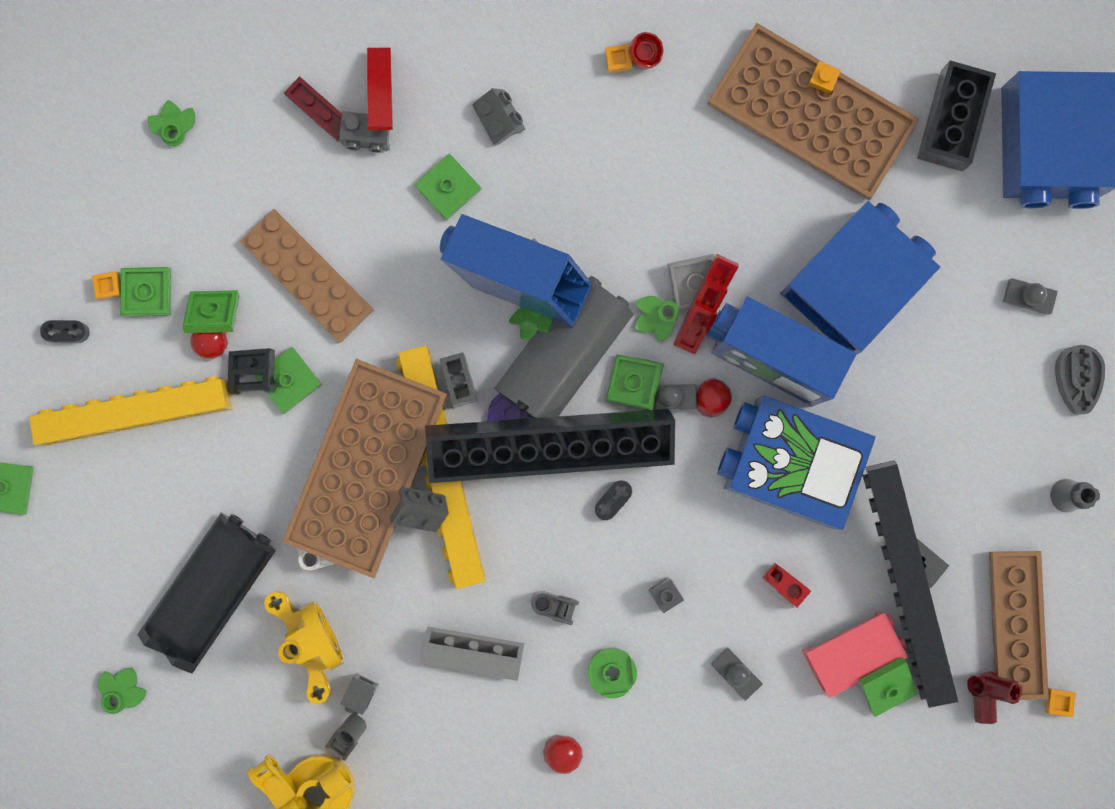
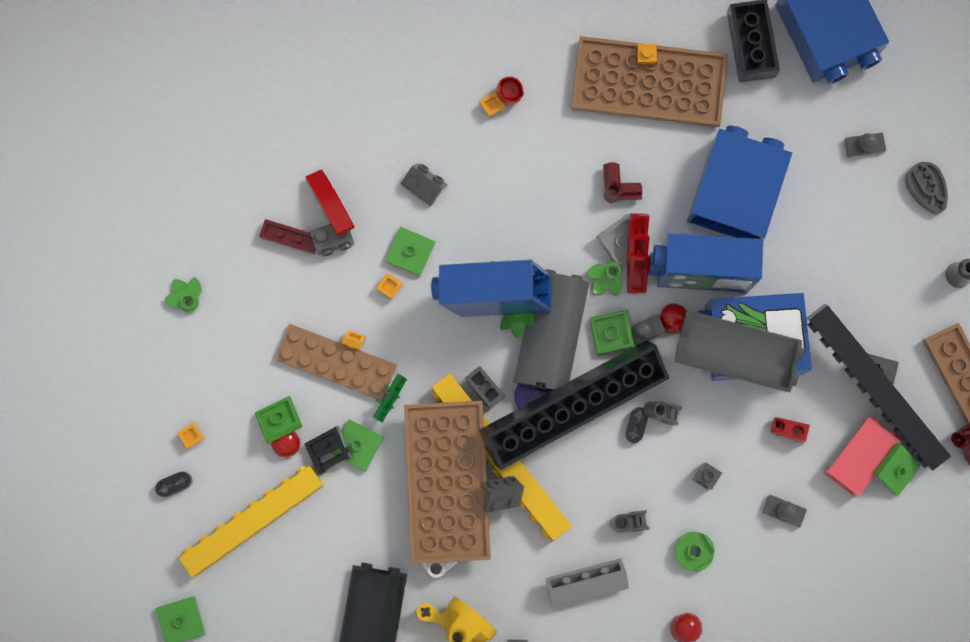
camera: 25 degrees left, 5 degrees down
(145, 291) = (221, 427): bright green plate -> none
(336, 259) = (353, 340): none -> light orange plate
(341, 350) = (385, 406): none -> green piece
(405, 216) = (389, 286): none -> light orange plate
(651, 501) = (662, 411): none -> dark grey piece
(724, 225) = (612, 180): none -> dark red piece
(767, 471) = (739, 351): none -> dark grey cylinder

